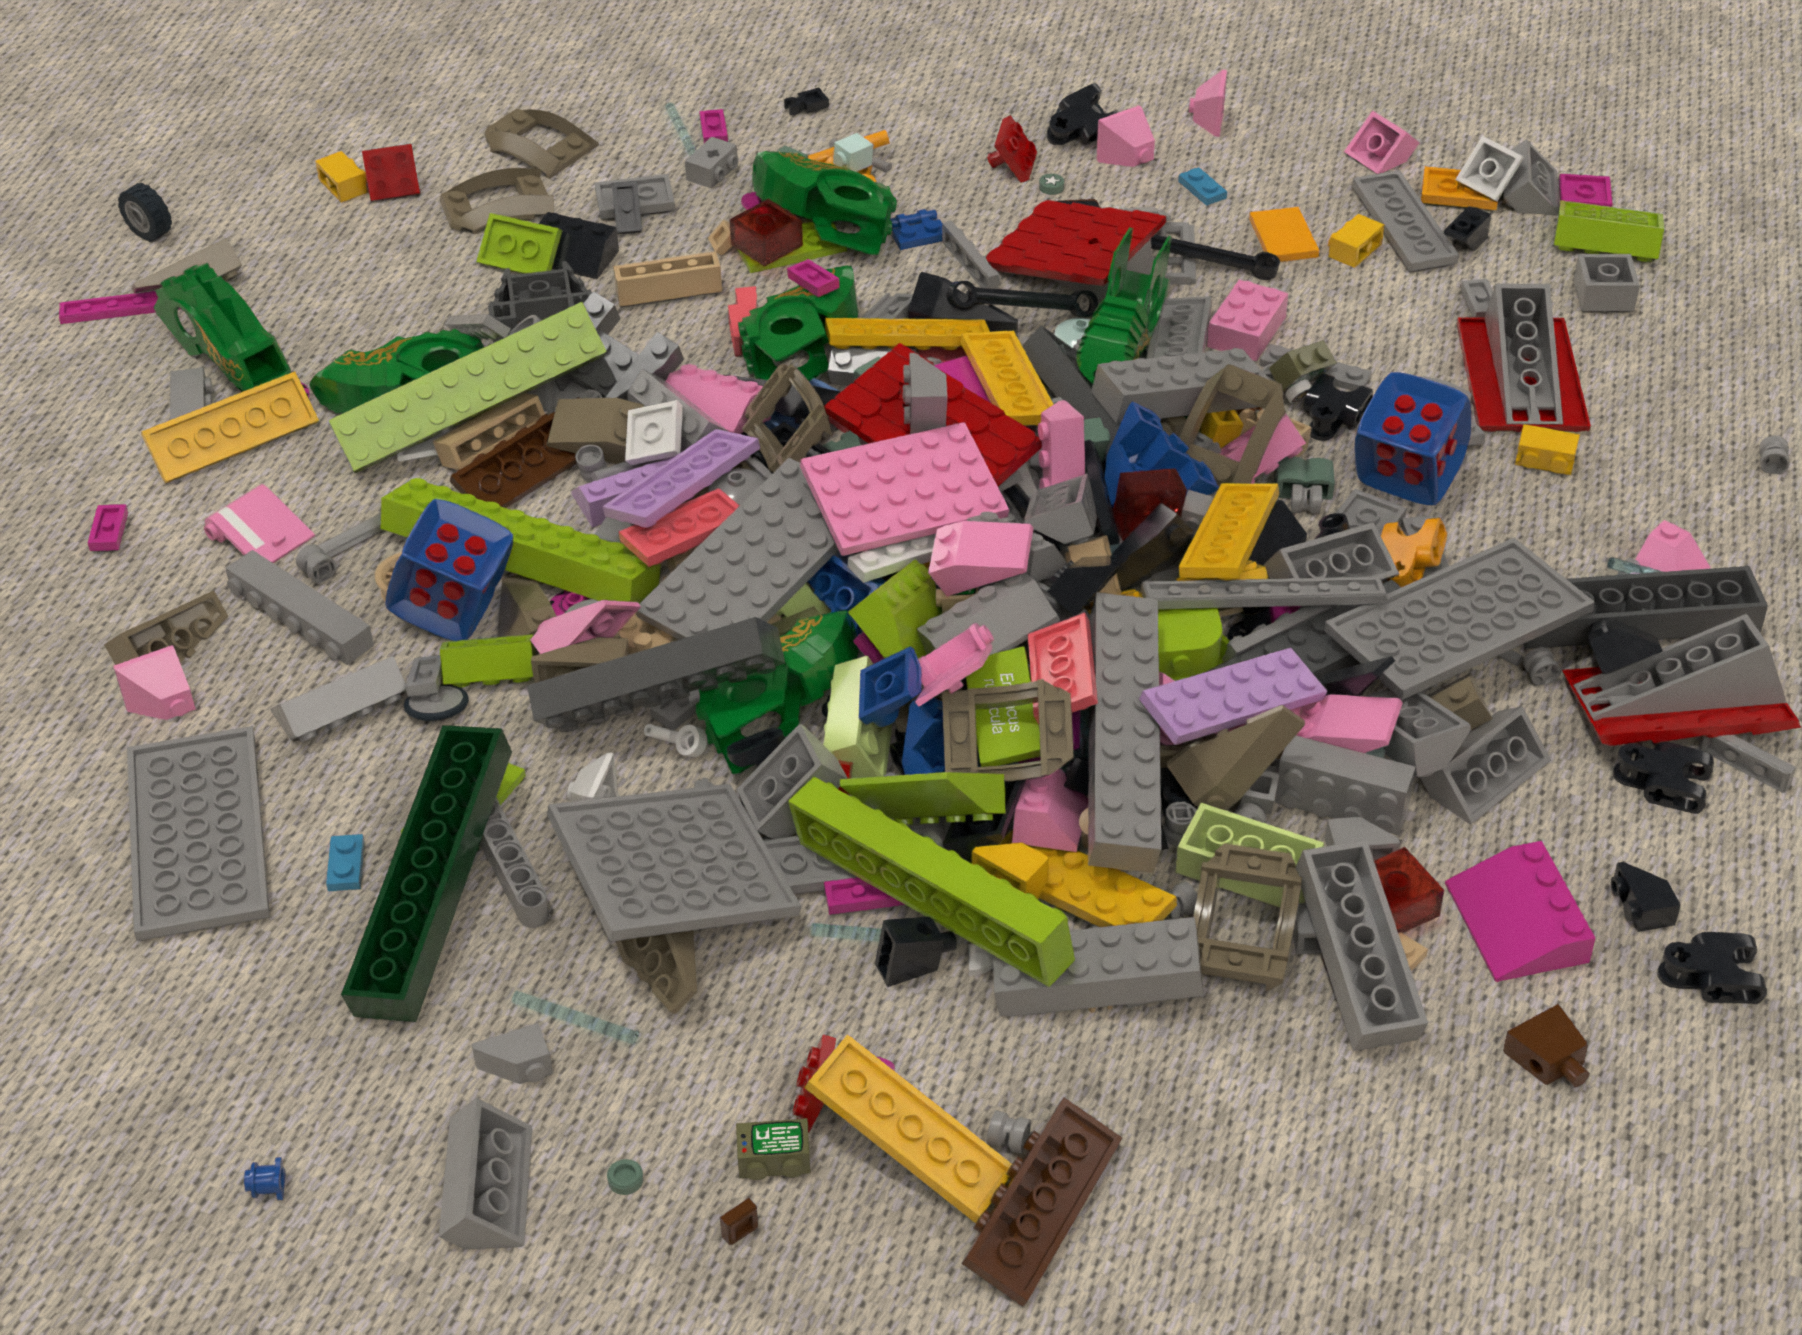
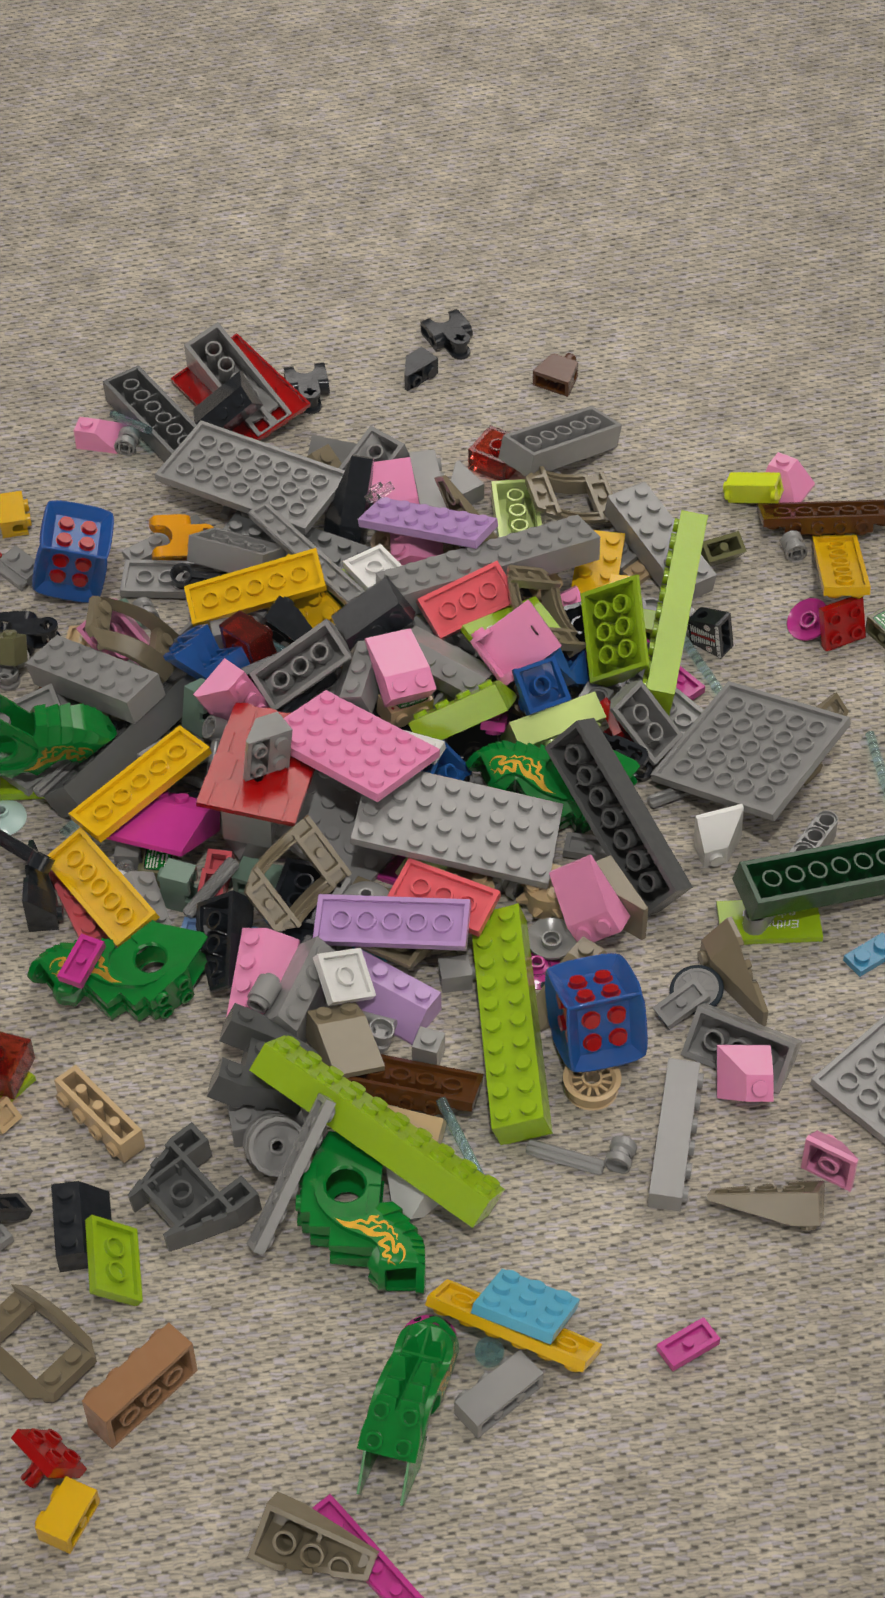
camera: 120 degrees left, 5 degrees up
(235, 435) = (525, 1306): none -> medium azure plate
(259, 524) = (608, 1230): bright pink door -> none
(293, 673) = (745, 1073): none -> bright pink slope
(397, 224) = (139, 1385): none -> medium nougat brick
(407, 729) = (723, 953): none -> dark tan wedge
(422, 466) = (457, 1131): none -> clear light blue bar
(487, 660) = (651, 978): lime brick -> none
(546, 487) = (428, 1046): none -> light grey brick
(683, 378) = (264, 992): none -> light grey brick
(745, 301) = (121, 1035): coral slope -> none
(891, 307) = (41, 937): light grey plate -> none
(1046, 1029) = (723, 548): none -> olive brick
(1145, 1137) = (753, 487): none -> neon yellow brick
(1146, 1199) = (794, 478): none -> bright pink slope
(1190, 629) = (368, 563): none -> white plate
(1330, 684) = (379, 491): none -> clear plate
(1521, 913) = (465, 409): dark pink slope -> none
(1750, 760) = (273, 349): light grey tile -> none

